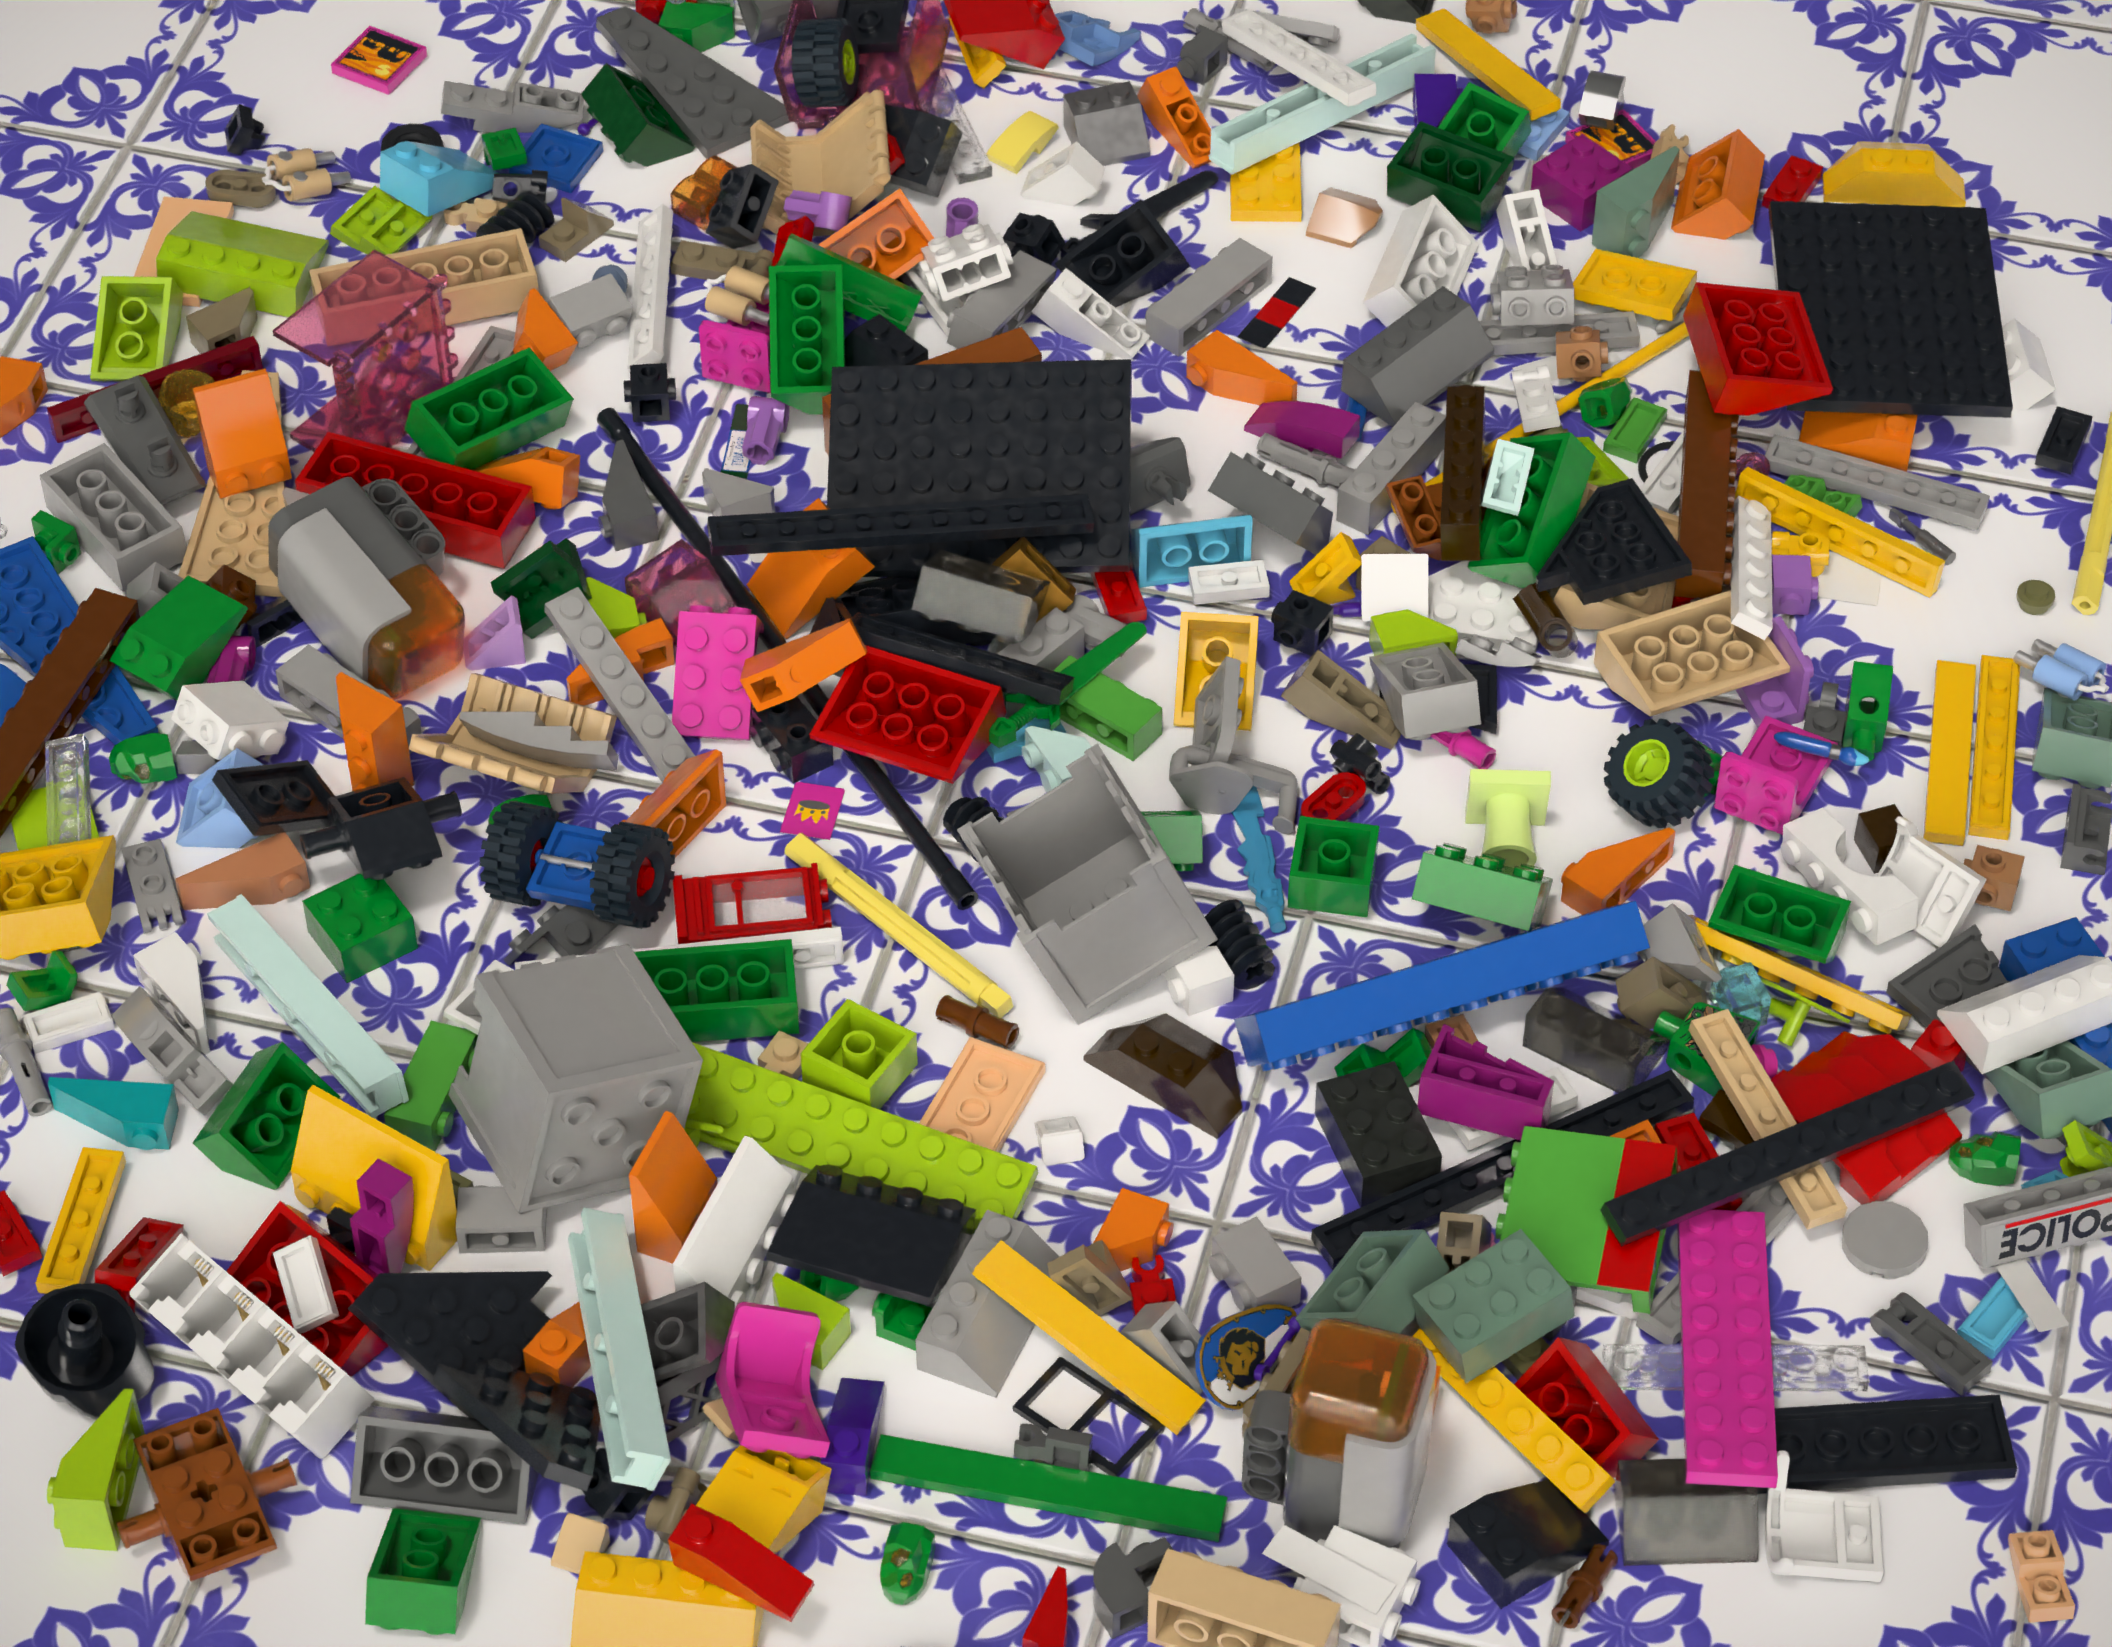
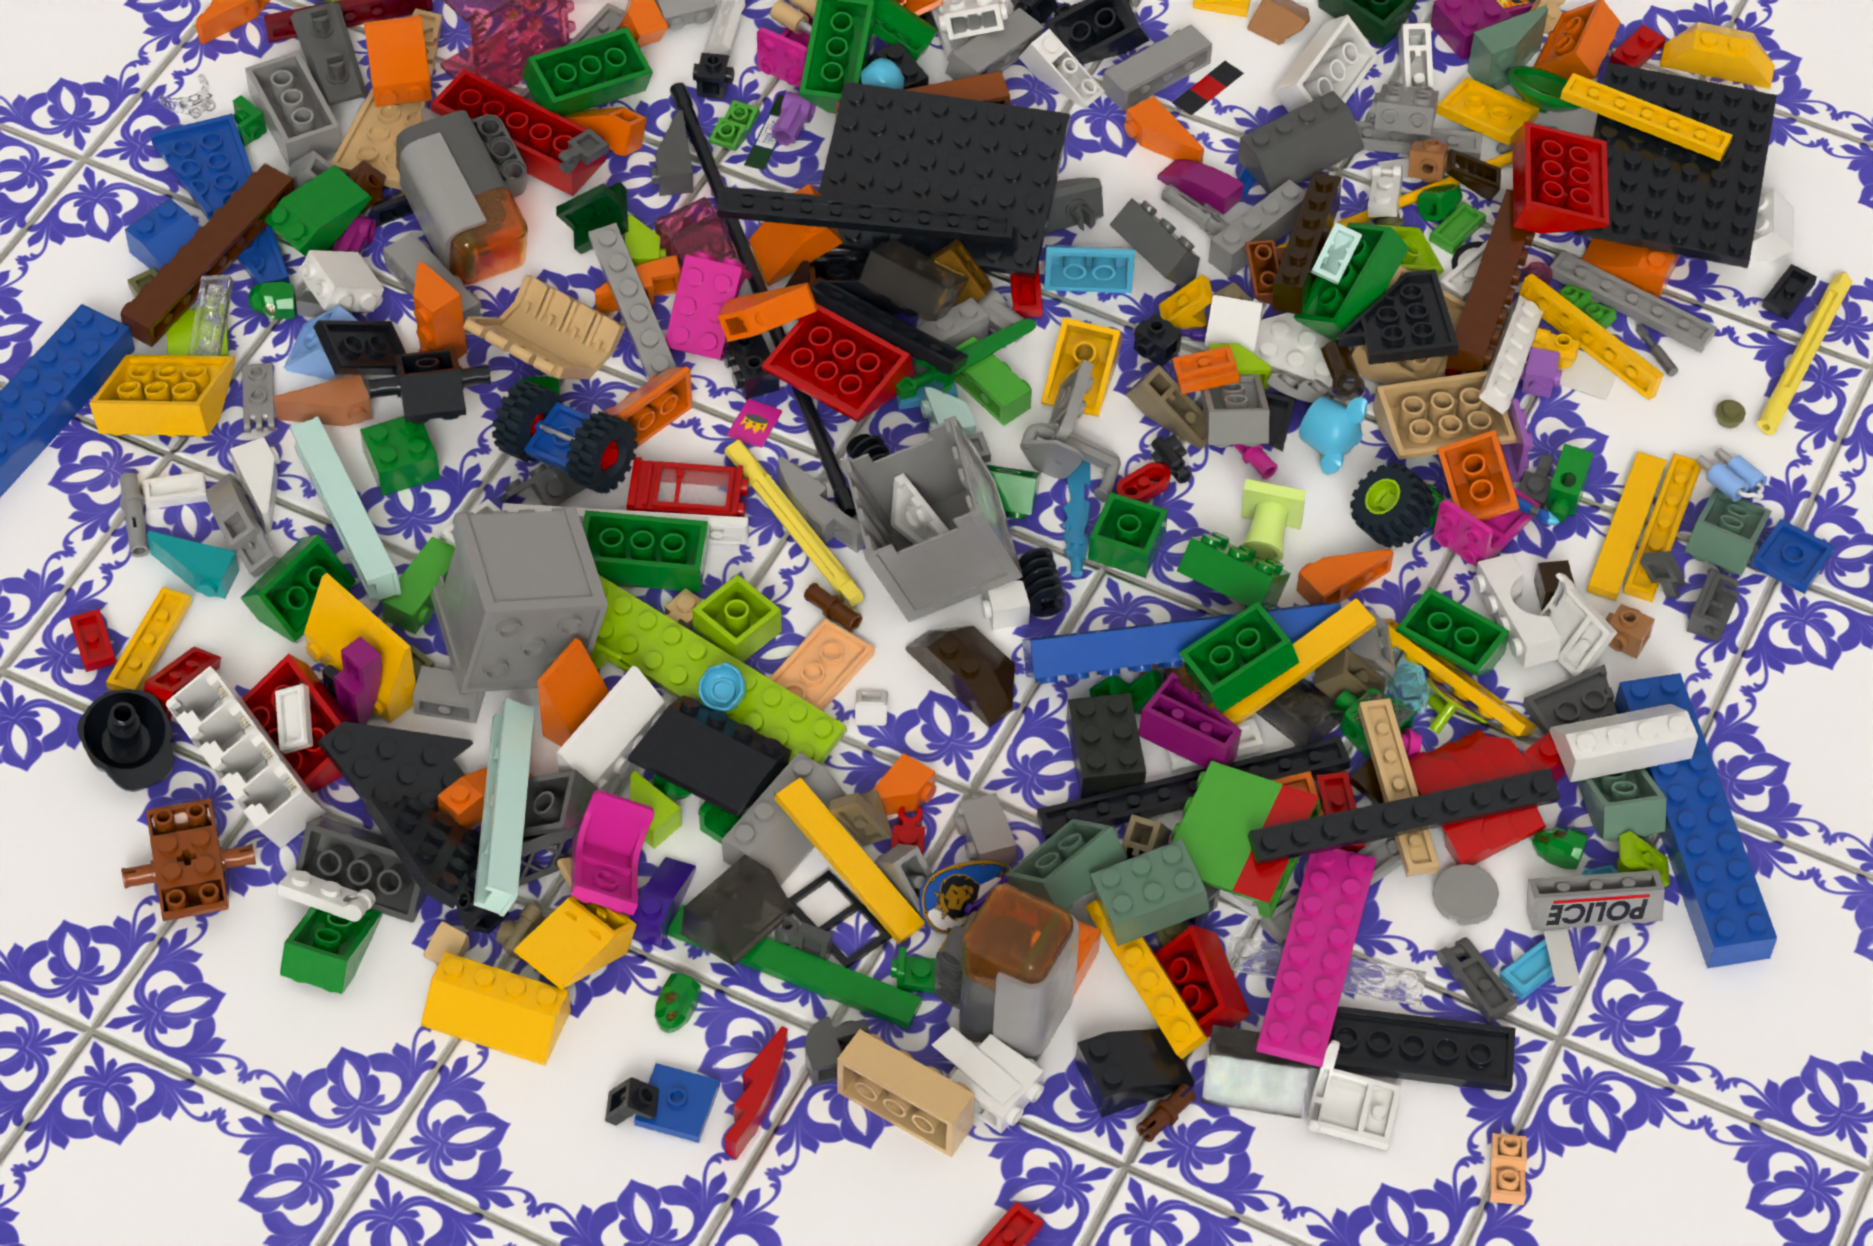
camera: 10 degrees right, 5 degrees up
(45, 986) = (162, 460): green bracket -> none
(98, 1478) = (116, 833): lime slope -> none
(178, 400) = (355, 25): clear yellow hair -> none
(402, 1508) = (326, 895): none -> white plate
(496, 639) = (553, 251): lavender slope -> none
(511, 501) = (585, 148): none -> dark grey plate
(528, 736) = (558, 331): light grey slope -> none
(692, 449) = (735, 126): none -> bright green slope
(736, 495) = (758, 171): light grey slope -> none
(737, 1563) = (548, 981): red slope -> none
(866, 1145) = (722, 687): none -> medium azure hair
(872, 351) = (883, 74): none -> medium azure hair
(914, 892) = (810, 499): none -> light grey slope
(957, 1428) = (736, 911): none -> clear smoke slope
(1059, 884) = (912, 514): none -> white wing
(1209, 1467) = (914, 973): none -> green bracket
(1228, 582) = (1111, 297): white plate -> none
(1378, 646) = (1205, 370): none -> orange plate
(1528, 989) = (1239, 657): none -> green brick
(1557, 694) = (1333, 430): none -> medium azure piece
(1598, 984) = (1312, 652): none -> yellow tile
(1641, 361) = (1481, 176): none -> dark brown slope
(1699, 249) = (1540, 88): none -> green dish
(1757, 718) = (1479, 476): none -> orange slope
(1839, 256) = (1646, 117): none -> yellow plate
(2016, 795) = (1663, 569): none -> dark grey plate

